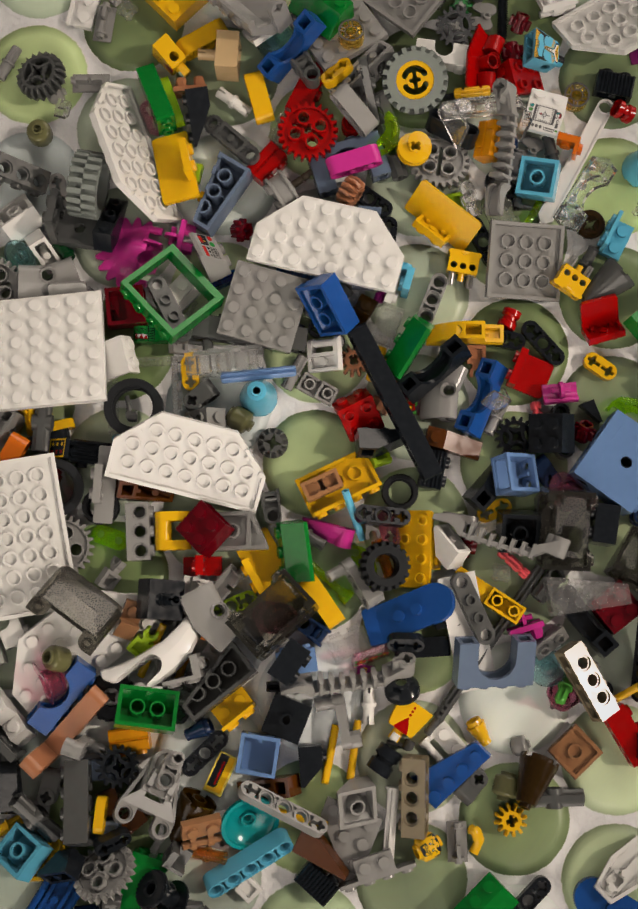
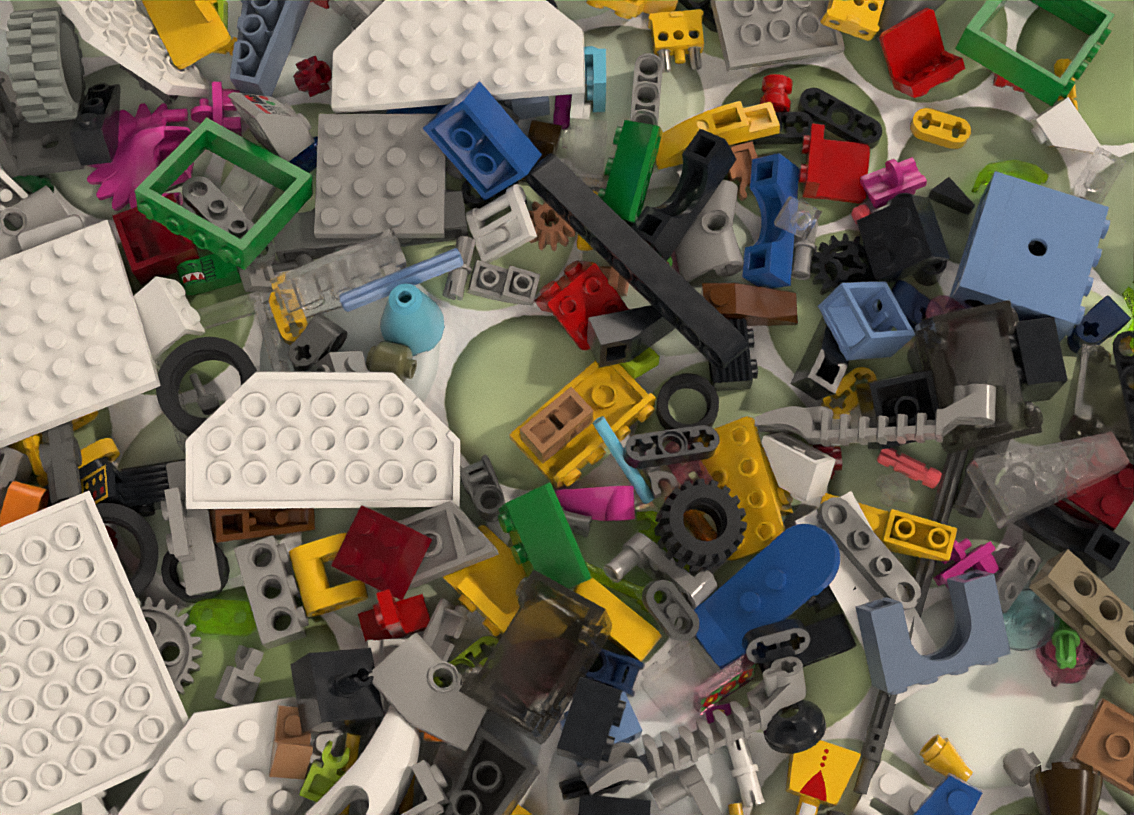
camera: 15 degrees left, 10 degrees down
(79, 604) = (198, 732): clear smoke windscreen -> none
(277, 450) = (467, 396): dark grey gear -> none
(353, 606) = (669, 609): none -> dark grey plate
(584, 431) = (954, 228): dark red gear -> none

